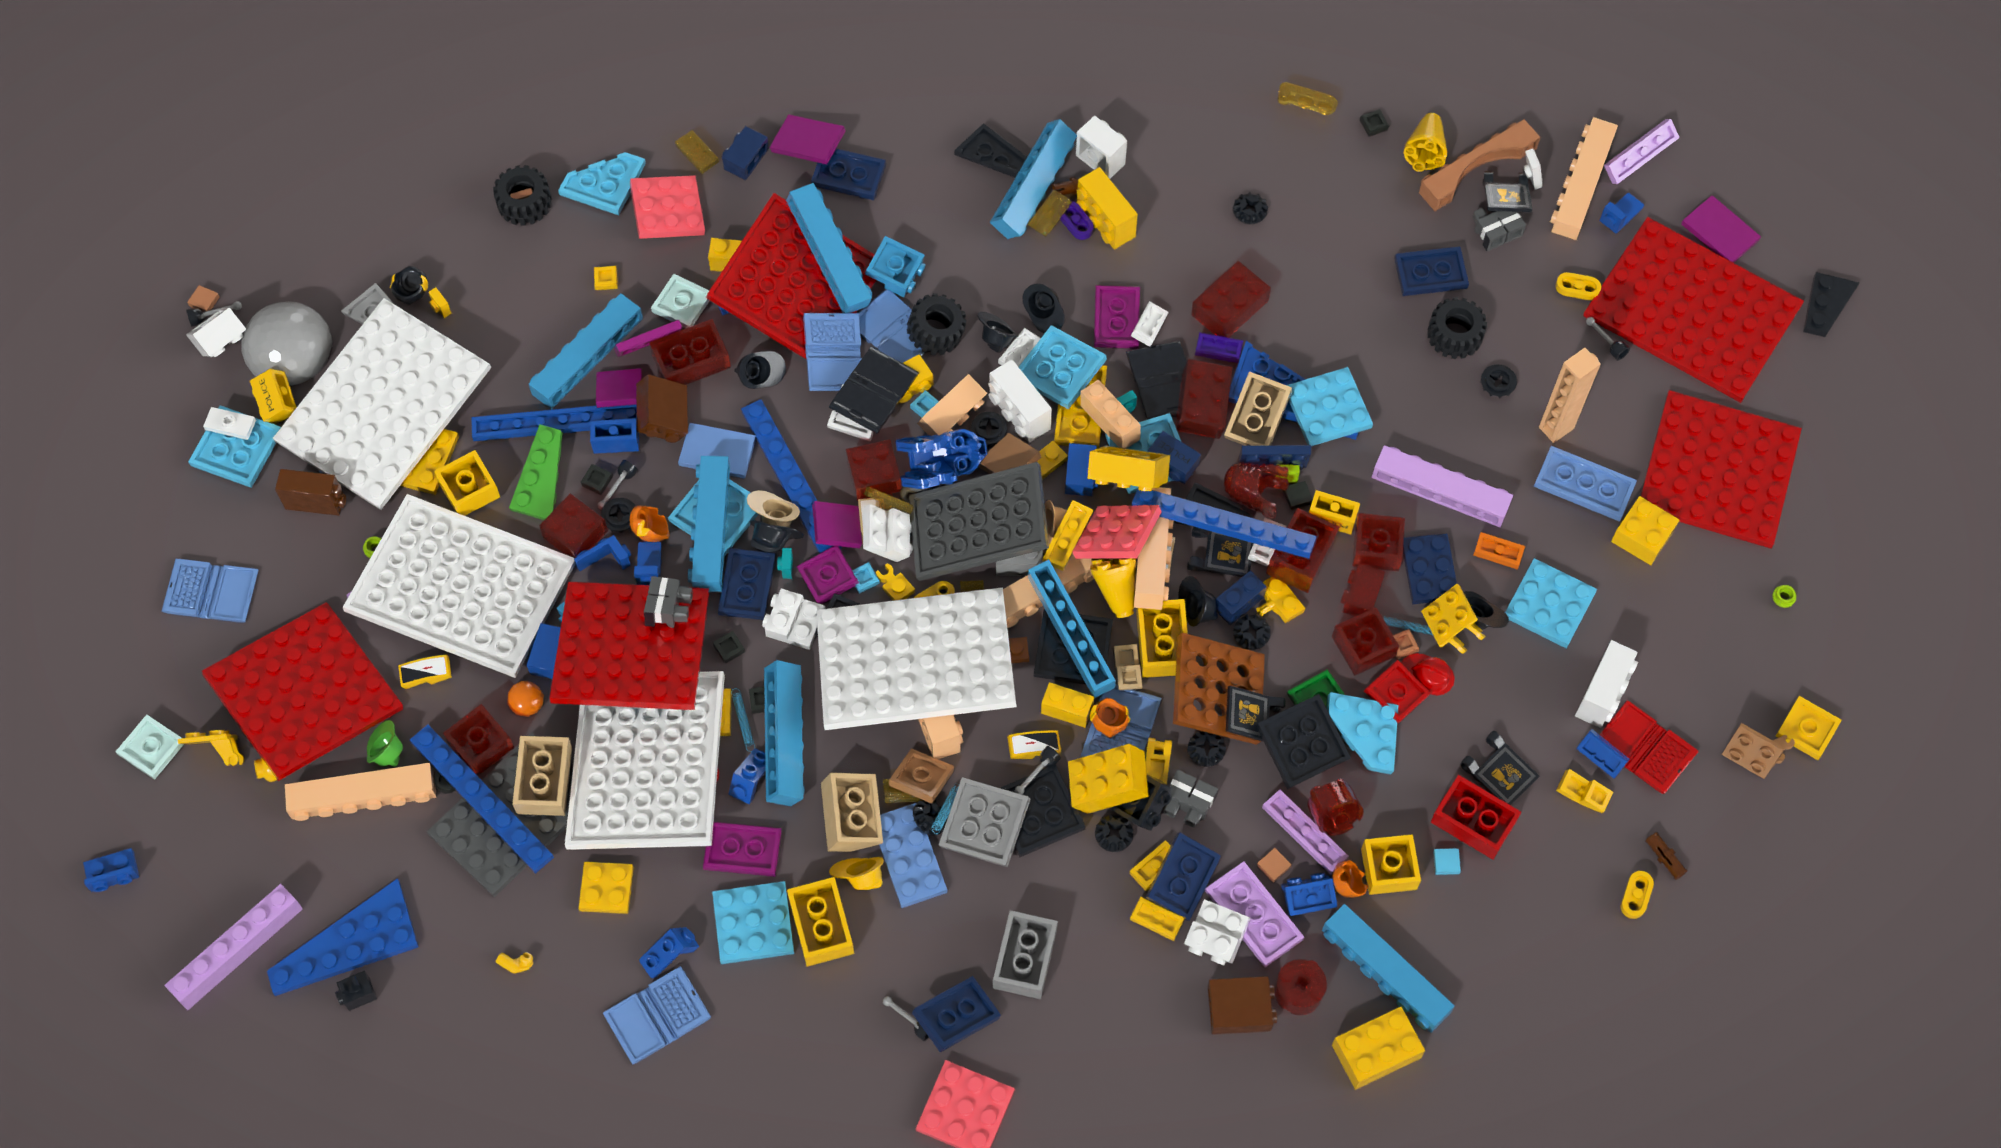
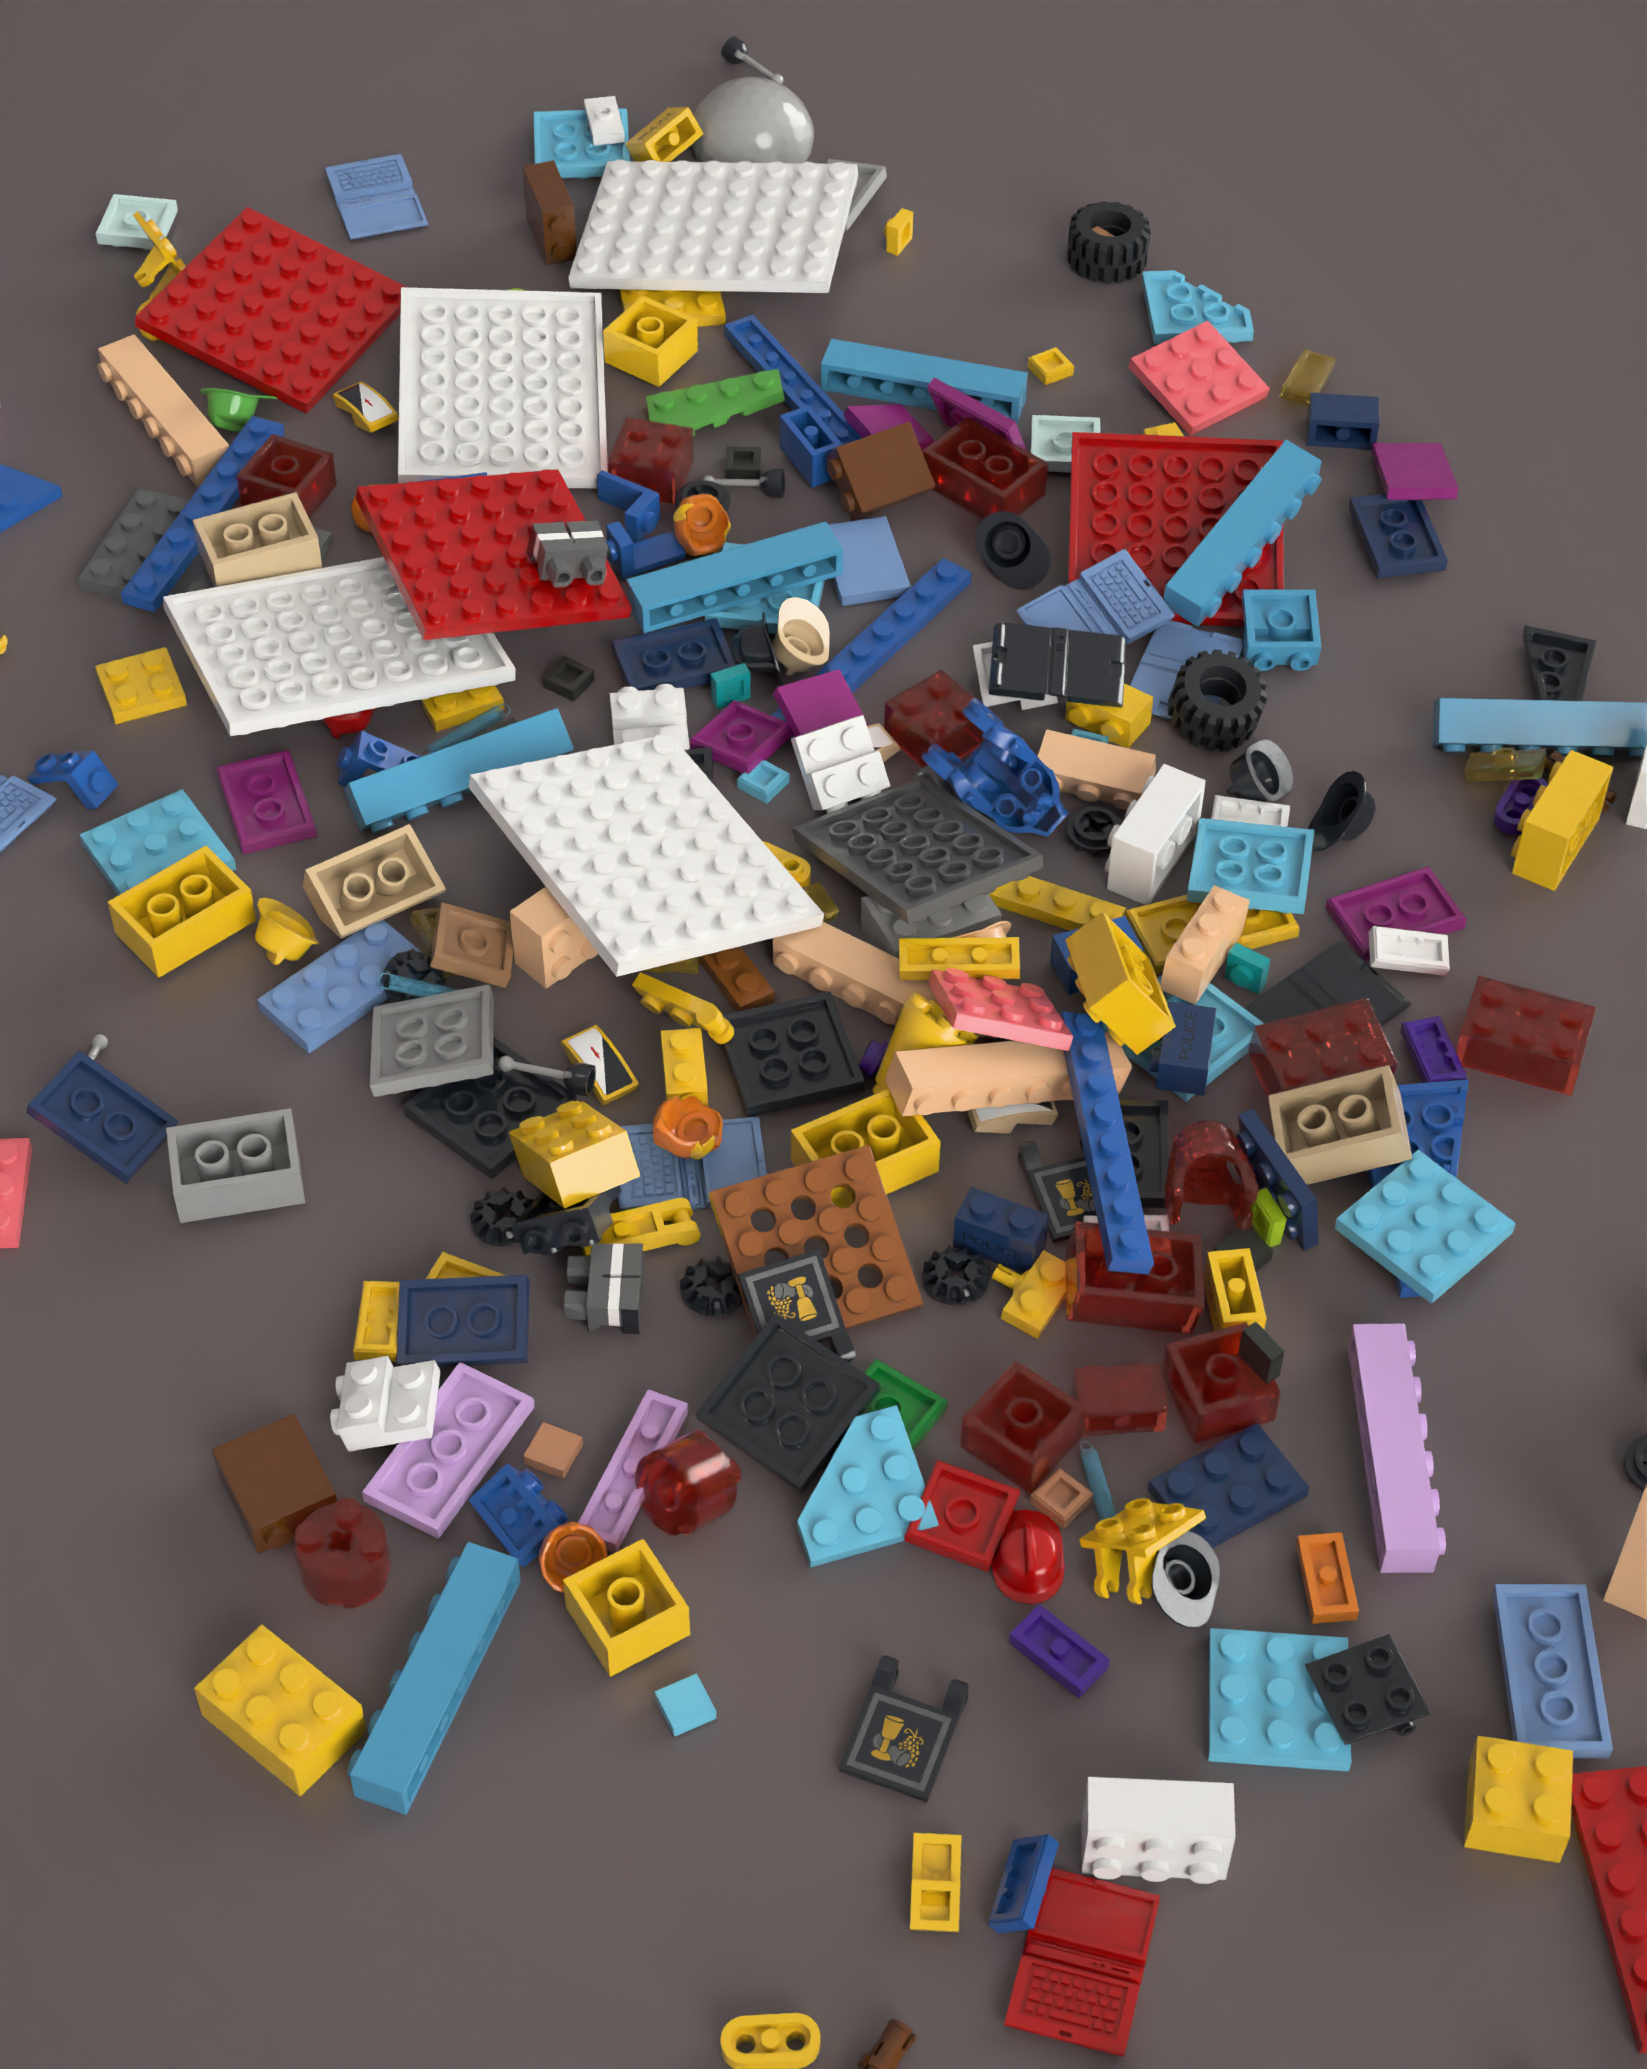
camera: 65 degrees right, 15 degrees down
(203, 299) = (766, 51): nougat tile -> none
(216, 332) = (714, 58): white brick -> none
(409, 285) = (902, 192): black hair -> none
(888, 501) = (892, 746): clear yellow plate -> none
(896, 586) = (773, 819): yellow plate -> none
(1008, 454) = (1065, 865): medium nougat tile -> none
(1028, 684) = (683, 1007): none -> yellow plate
(1071, 629) = (798, 1015): dark azure brick -> none
(1098, 607) = (873, 1057): none -> dark purple plate
(1127, 667) = (774, 1135): tan slope -> none
(1199, 604) = (950, 1184): black piece -> none
(1387, 514) = (1261, 1352): none -> pearl dark grey tile
(1475, 817) = (781, 1709): red brick -> none
(1489, 683) = (1059, 1651): none -> dark purple plate
(1567, 563) = (1368, 1690): none -> black hinge

